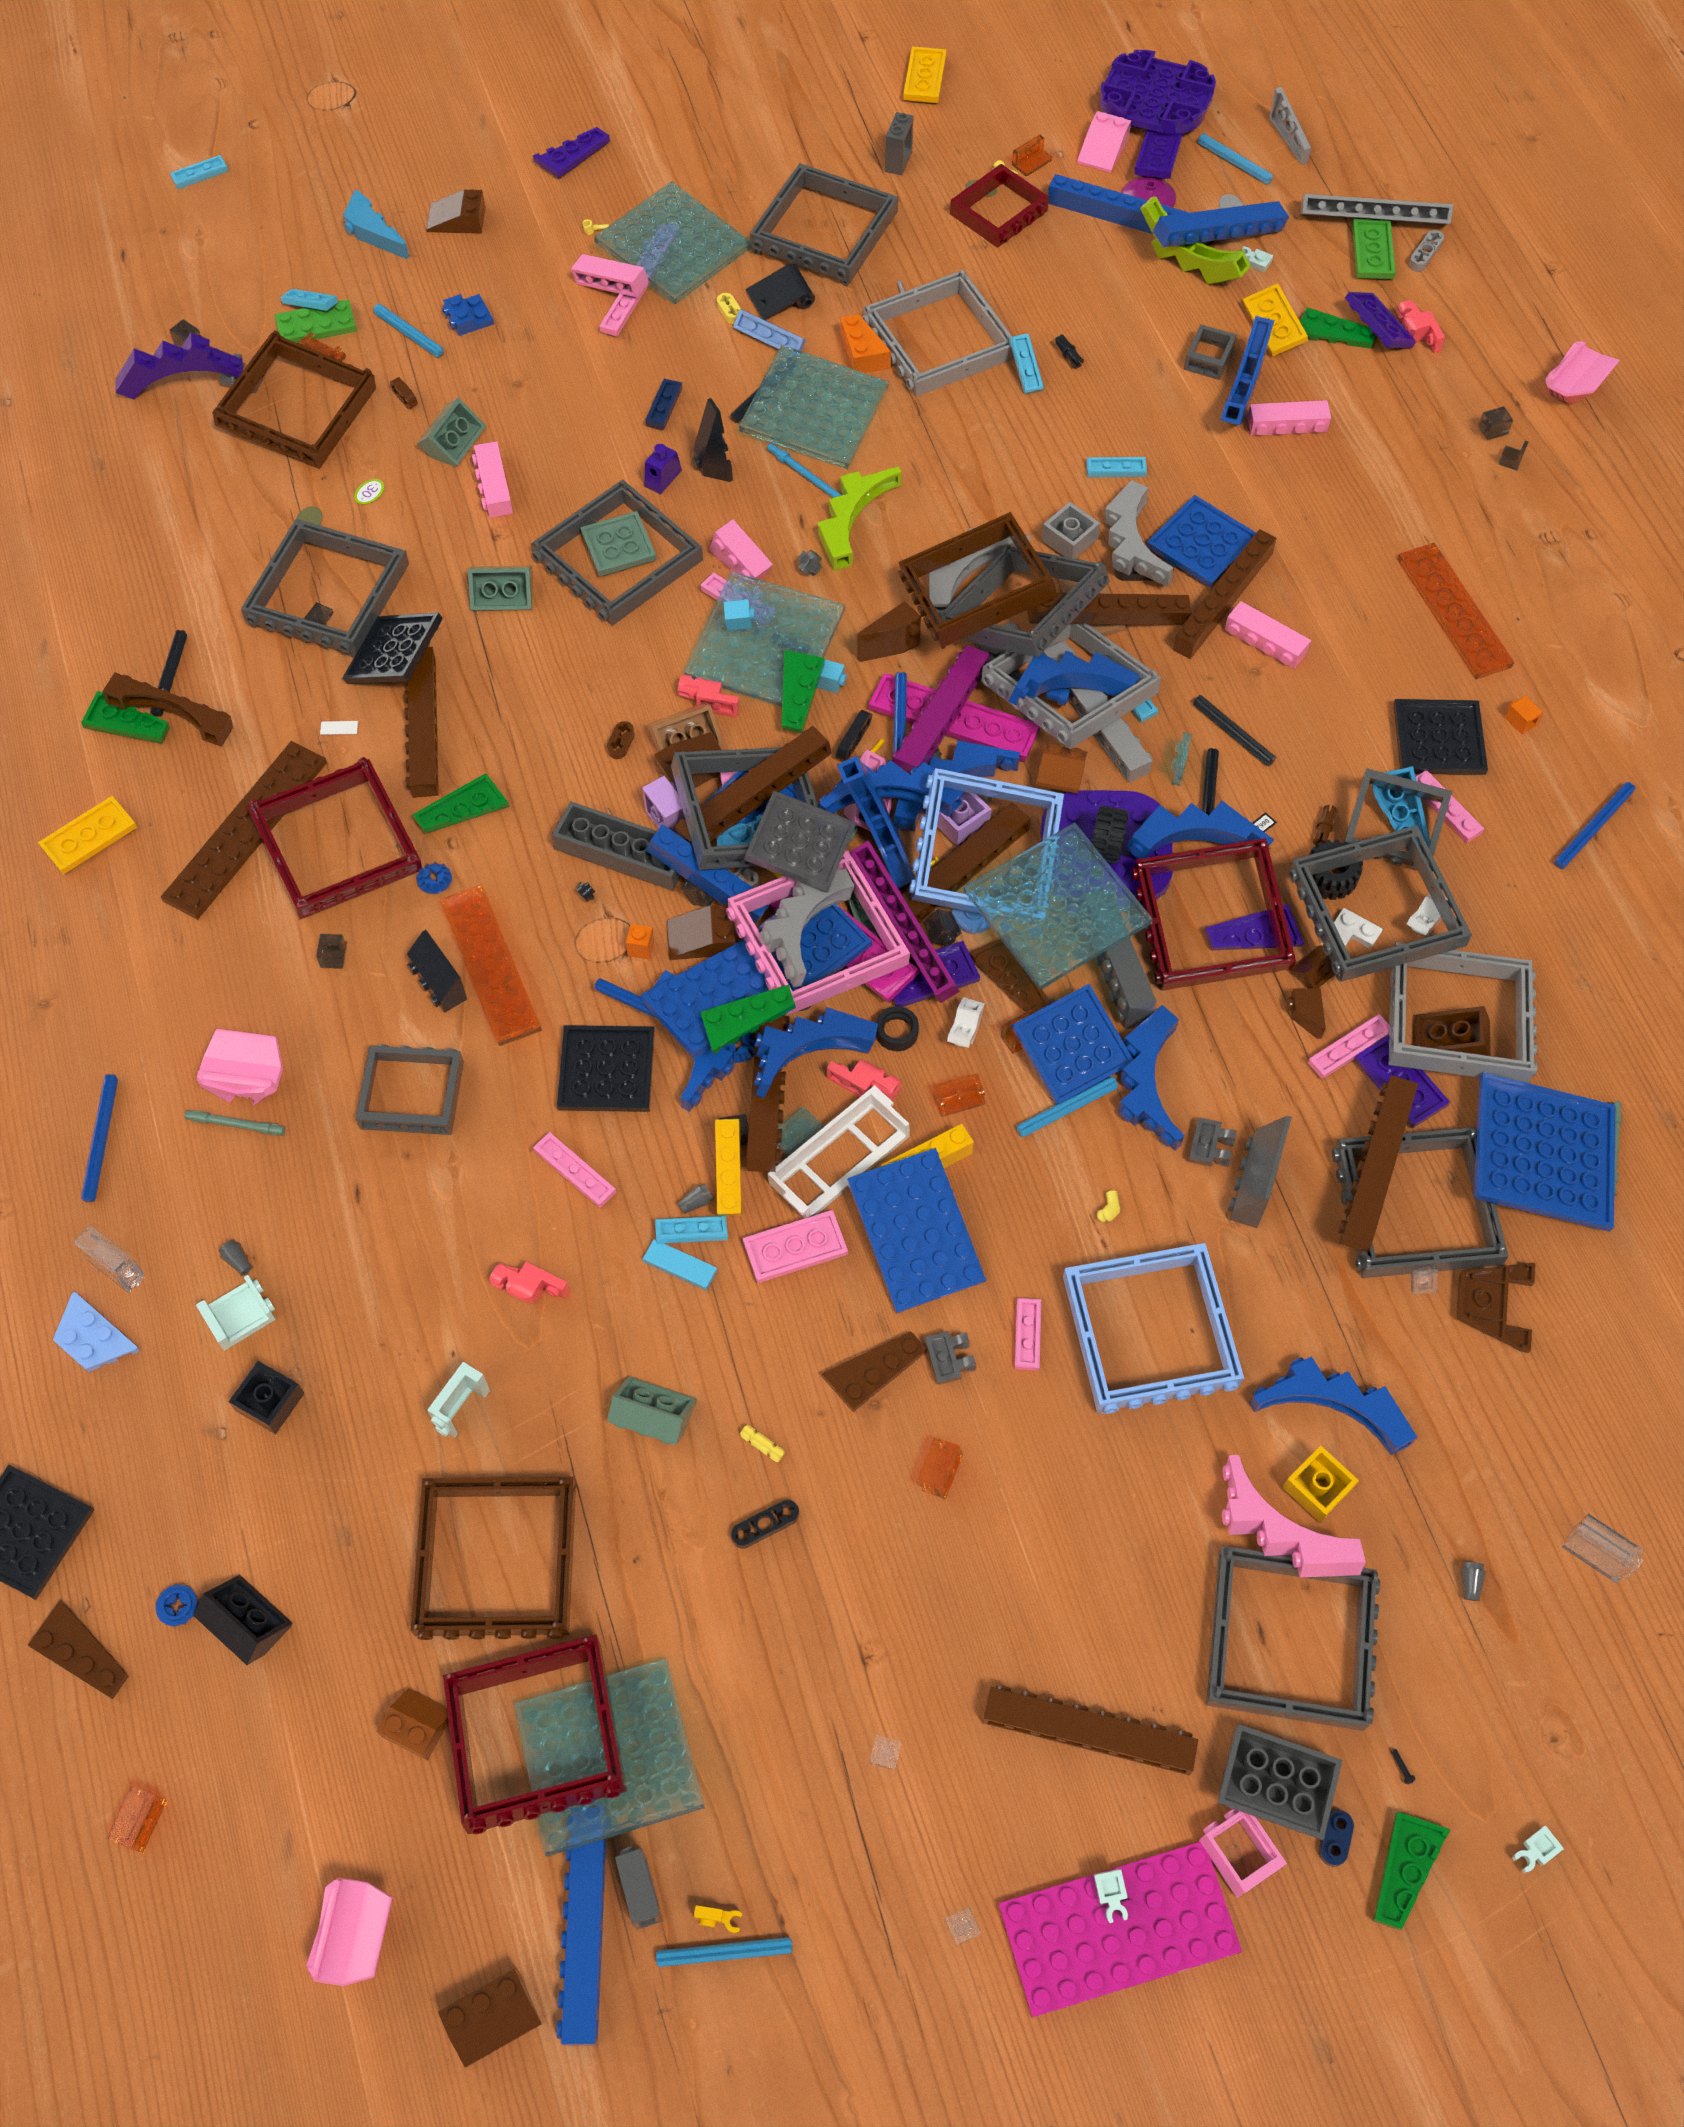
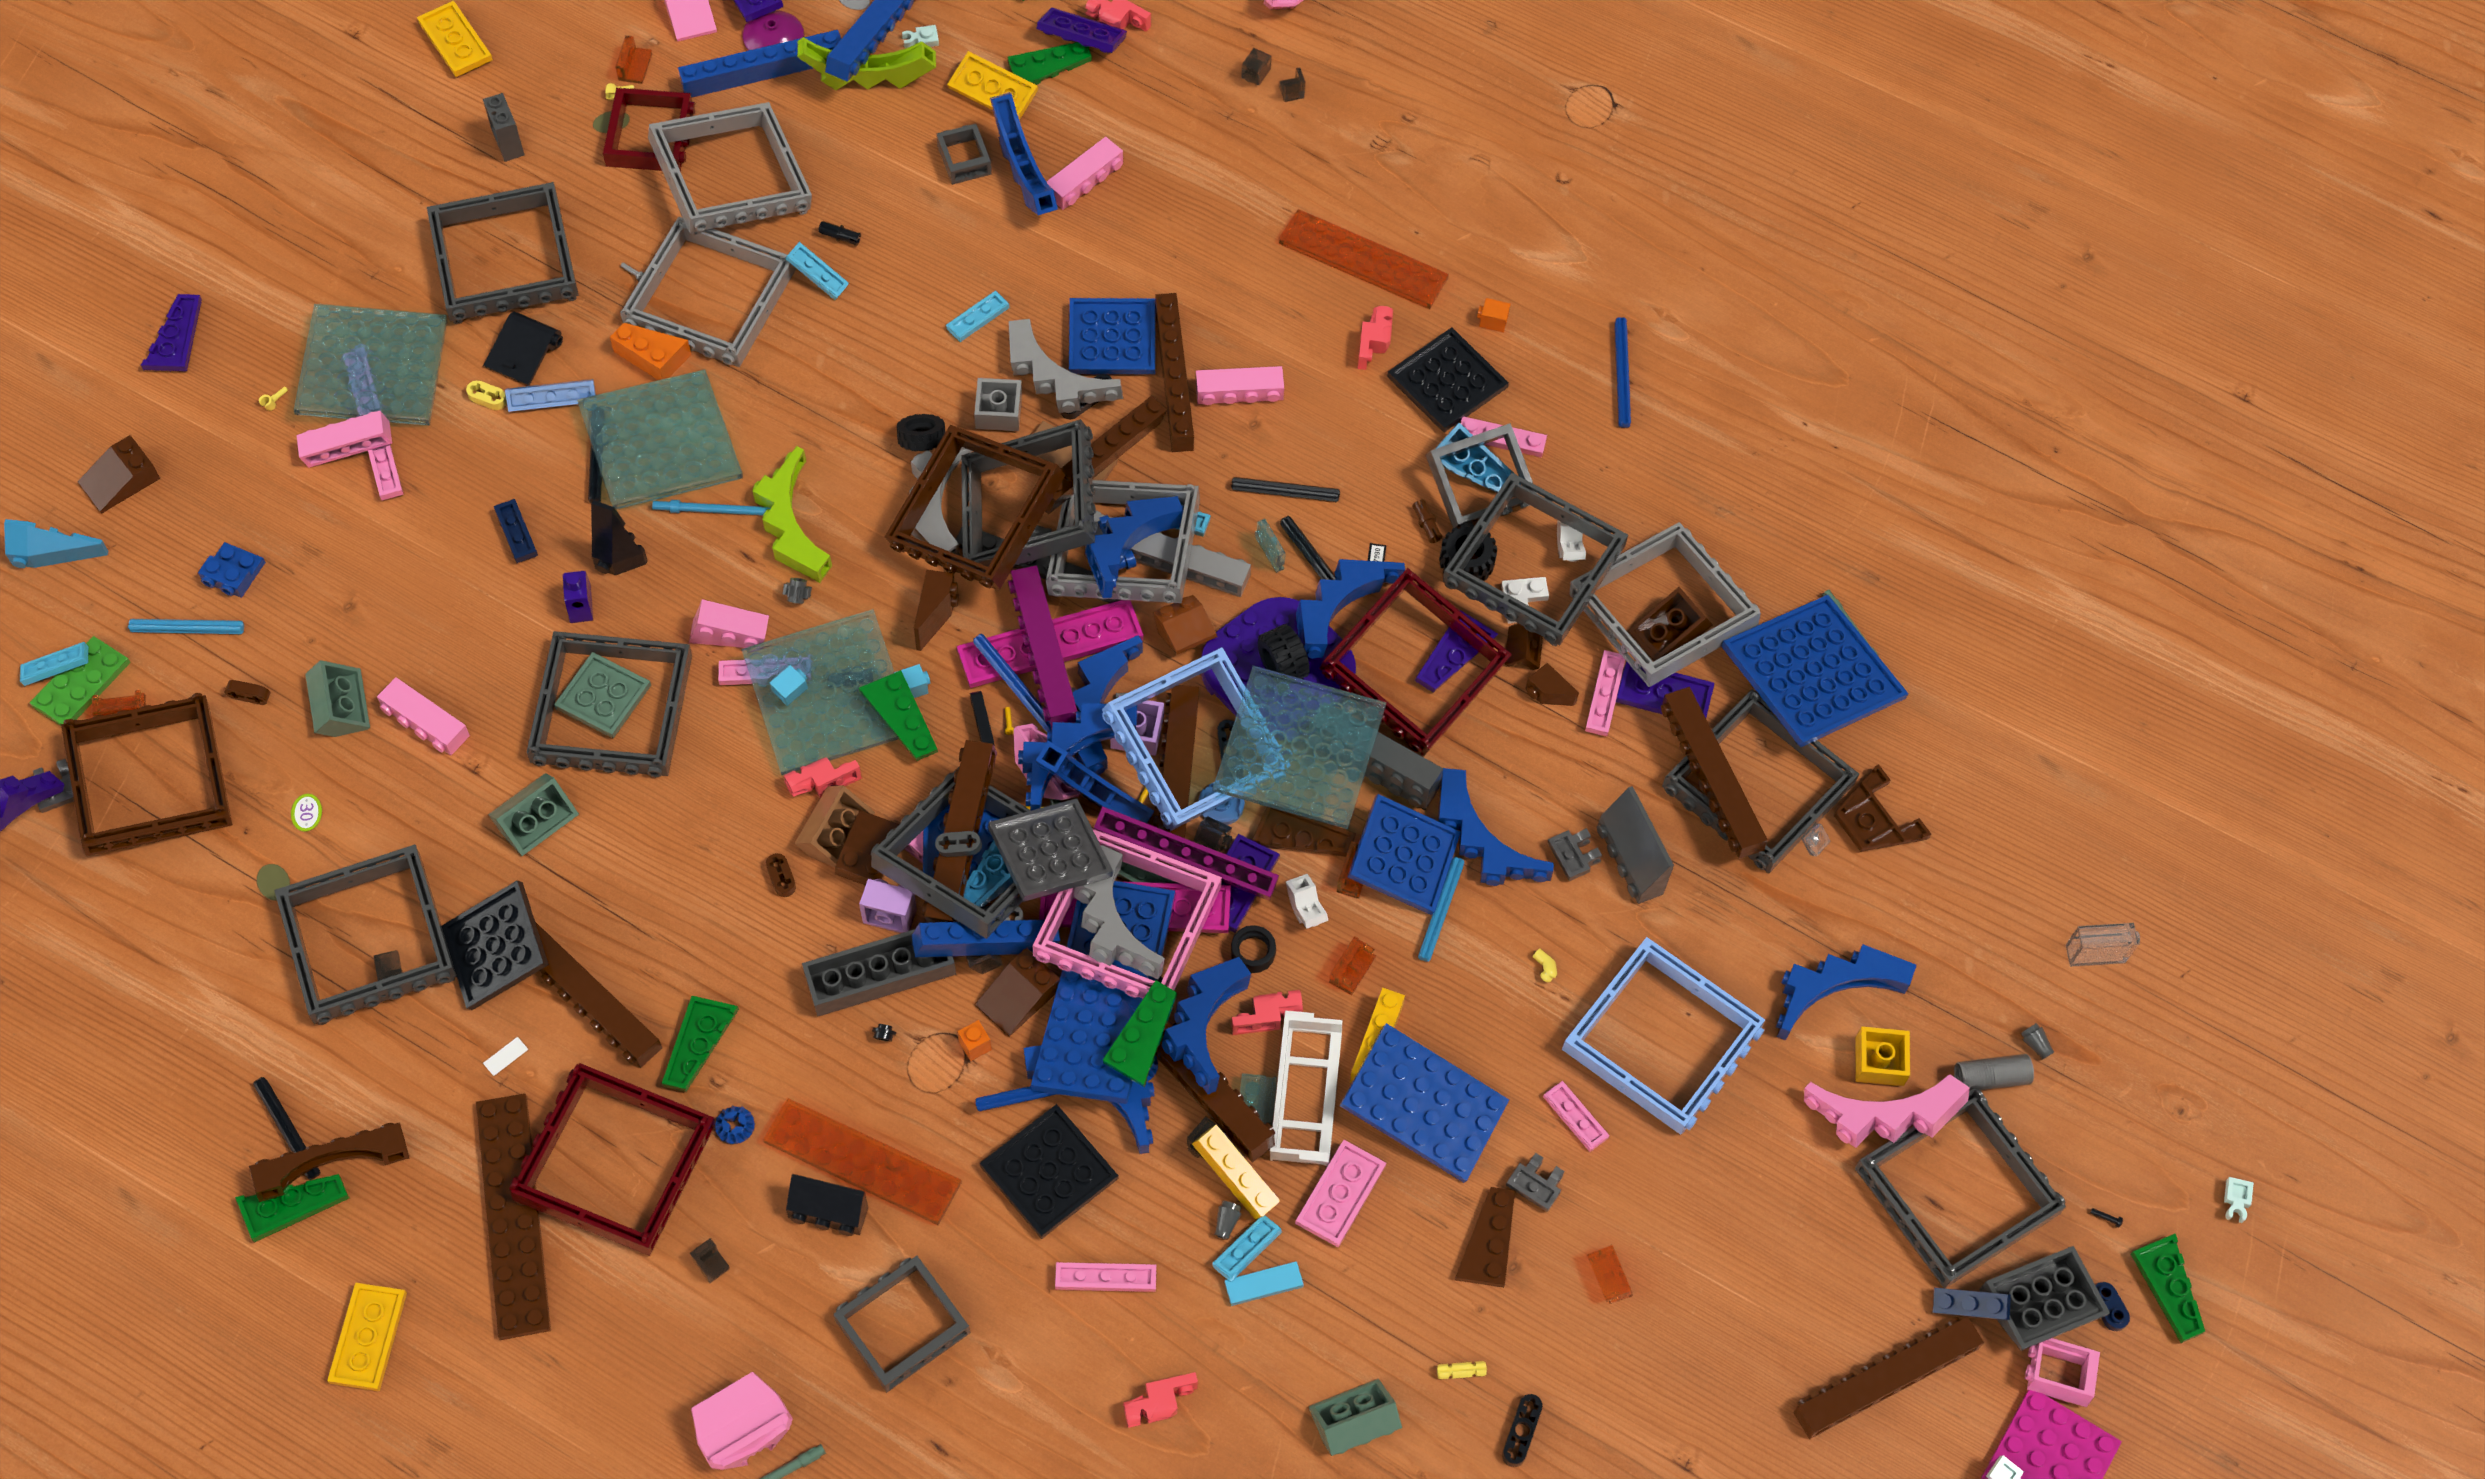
camera: 45 degrees left, 0 degrees up
(738, 794) = (959, 847): none -> dark grey beam
(992, 508) = (920, 432): none -> black tyre
(1014, 292) = (737, 212): none -> light grey window
(1211, 1732) = (1972, 1303): none -> dark blue plate
(1409, 667) = (1375, 335): none -> coral plate
(1415, 1578) = (1996, 1071): none -> light grey piece

